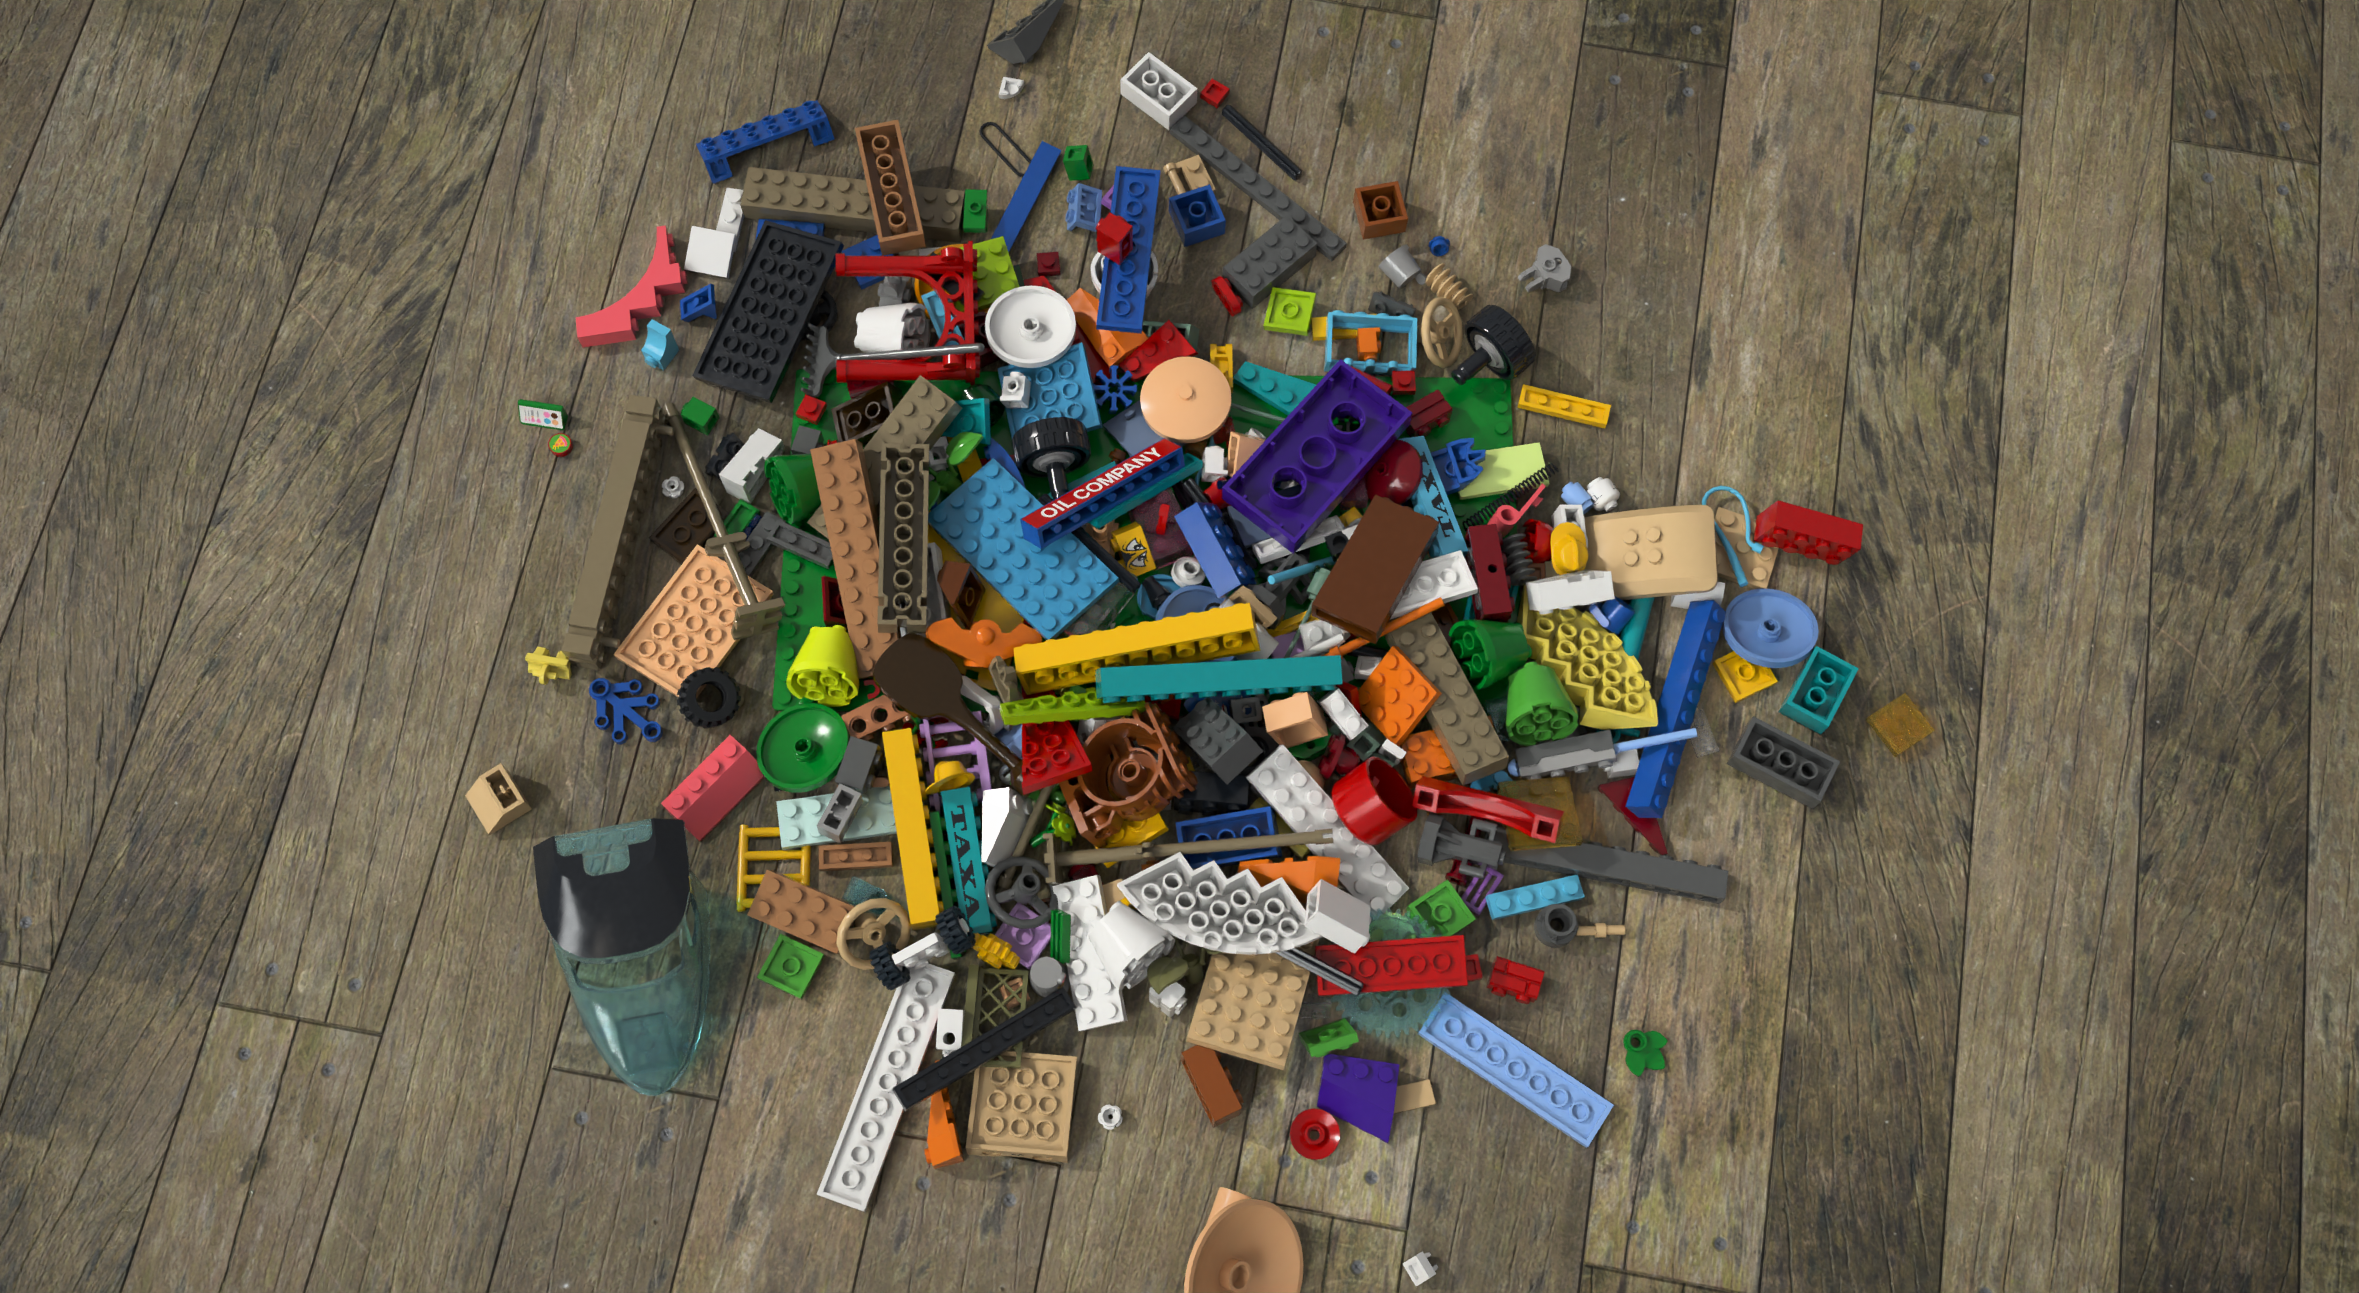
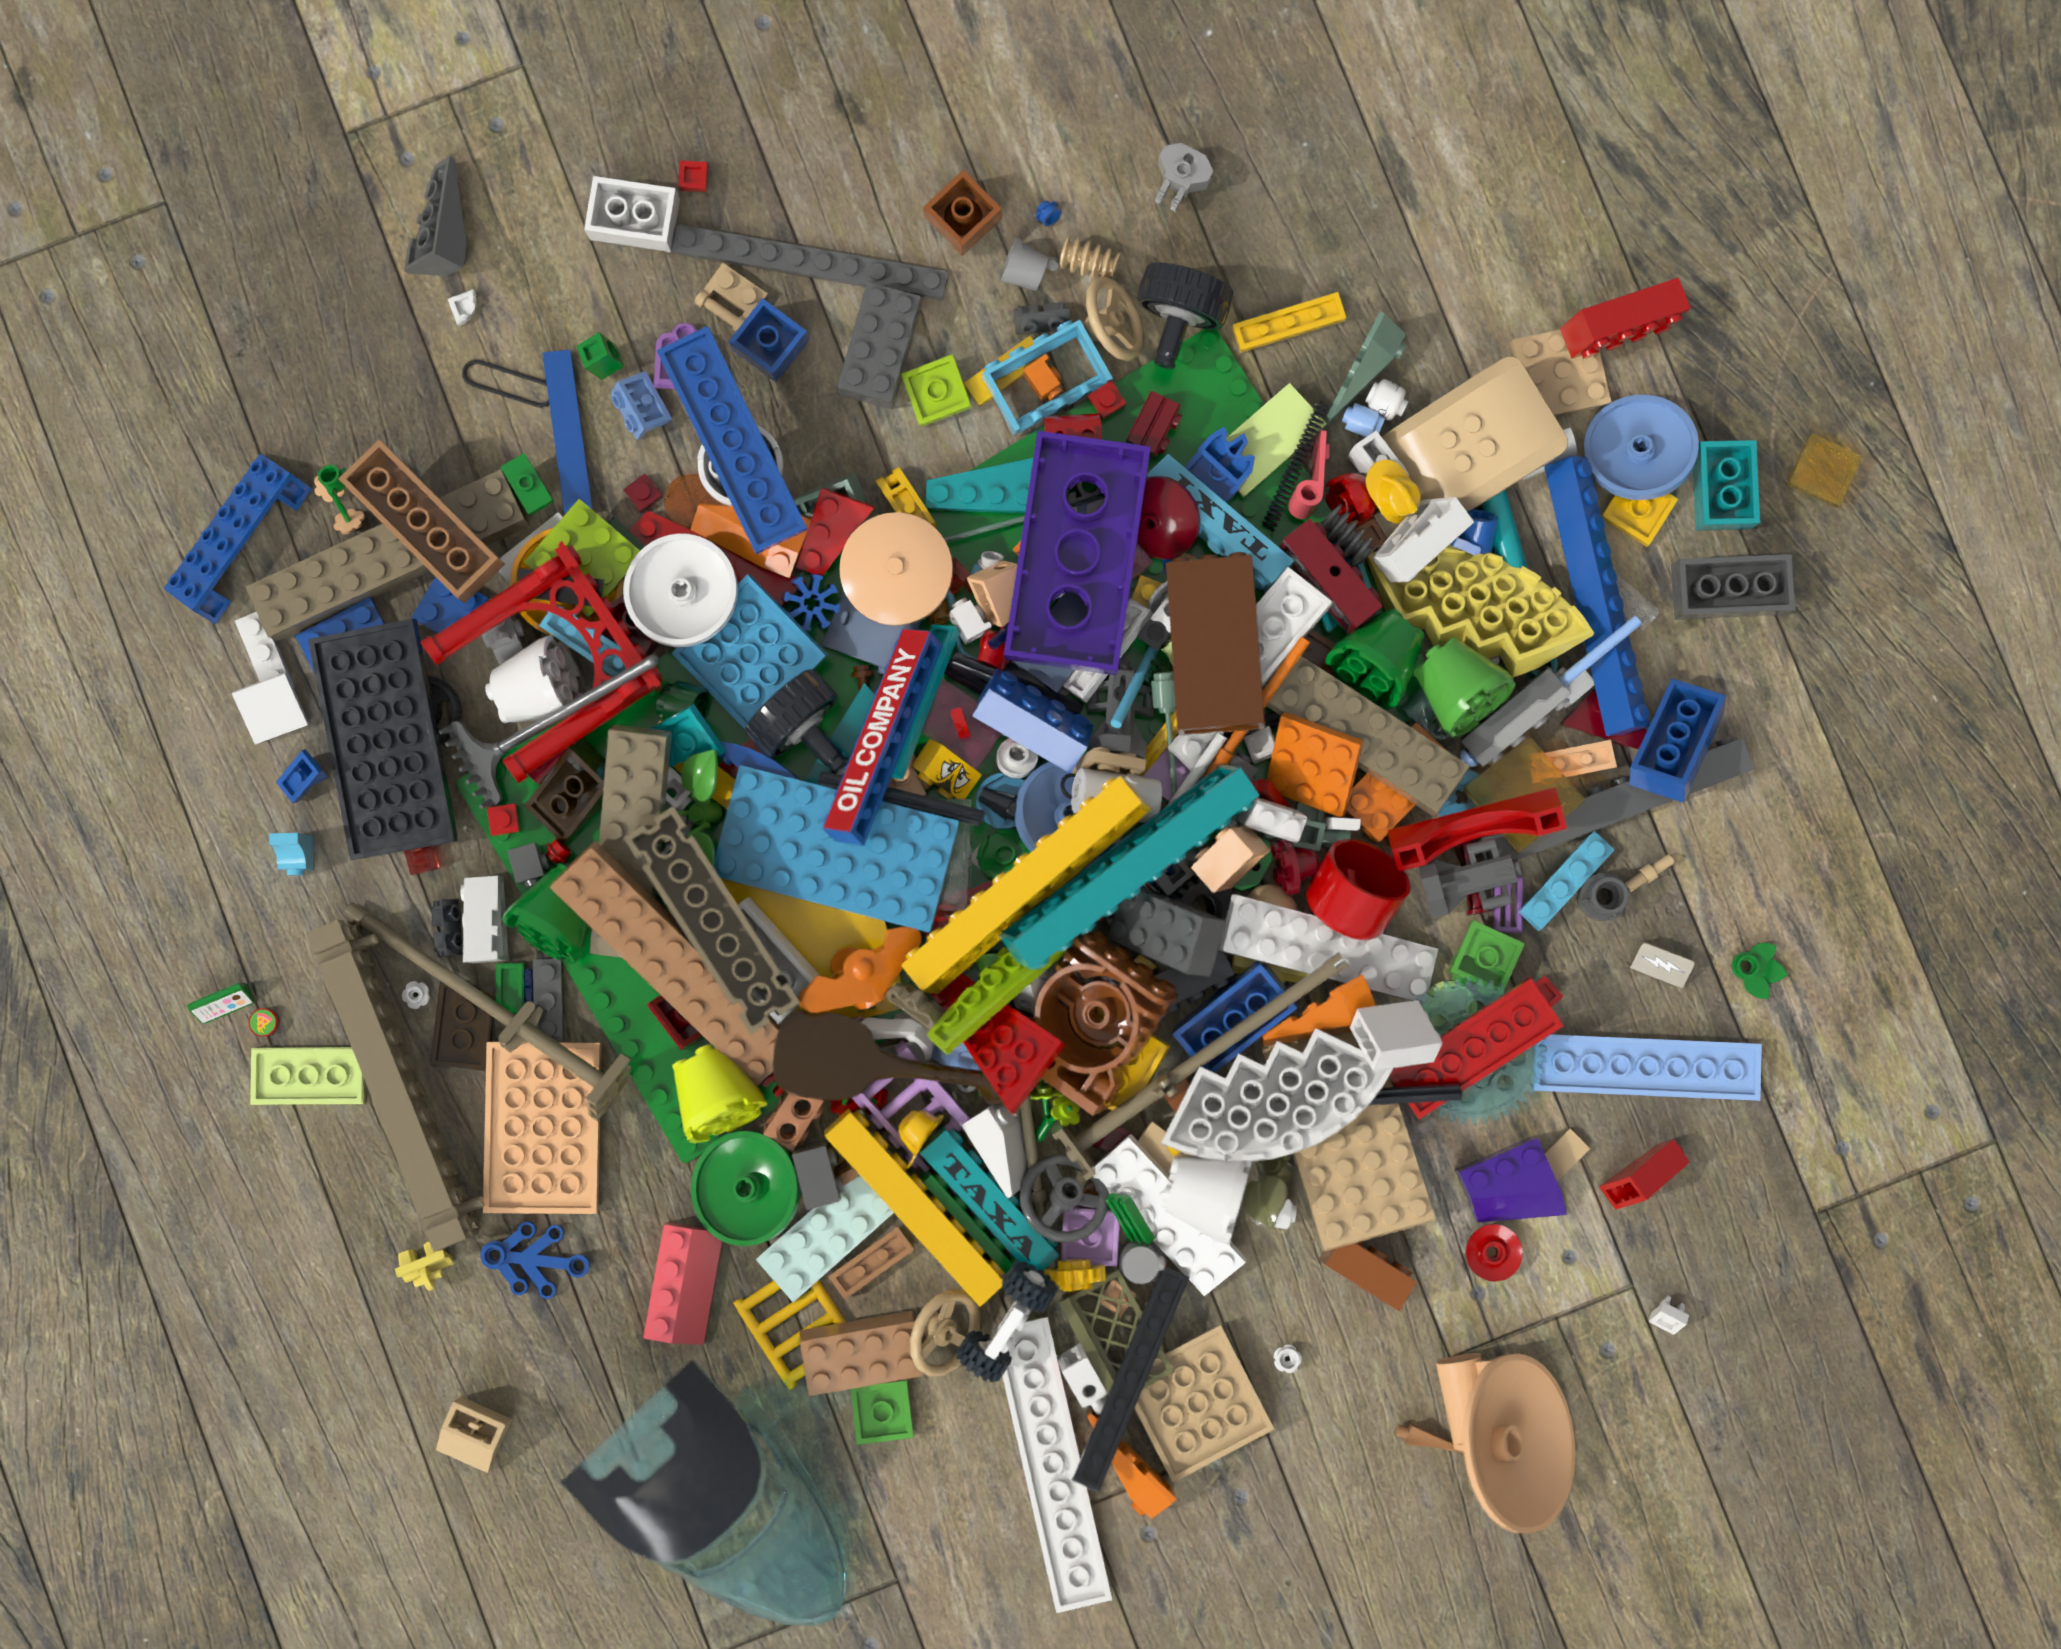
camera: 30 degrees left, 15 degrees up
(561, 495) = (306, 1076): none -> yellowish green tile
(644, 301) = (238, 808): coral arch -> none
(699, 415) = (389, 900): green brick -> none
(723, 683) = (636, 1207): black tyre -> none
(739, 404) = (421, 860): none -> clear red tile
(801, 543) = (594, 975): dark grey plate -> none
(840, 813) = (832, 1237): light grey brick -> none
(846, 143) = (330, 489): none -> plant
(861, 891) = (904, 1296): clear light blue piece -> none
(961, 589) = (804, 935): reddish brown slope -> none
(1019, 395) = (719, 674): white brick -> none
(1072, 280) = (683, 499): none -> clear orange tile
(1114, 238) = (714, 444): red brick -> none
(1172, 1238) = (1418, 1437): none -> medium nougat piece
(1224, 292) = (868, 418): red plate -> none
(1261, 142) = (781, 204): black axle -> none
(1328, 1037) = (1452, 1153): bright green plate -> none
(1465, 1146) = (1645, 1175): none -> red slope
(1515, 980) = (1596, 978): red brick -> none
(1571, 1001) = (1661, 964): none -> slope
(1600, 819) = (1584, 758): none -> light nougat plate
(1617, 457) = (1374, 357): none -> sand green wedge
(1677, 840) = (1677, 740): none -> blue brick
(1737, 568) = (1577, 364): medium azure piece -> none

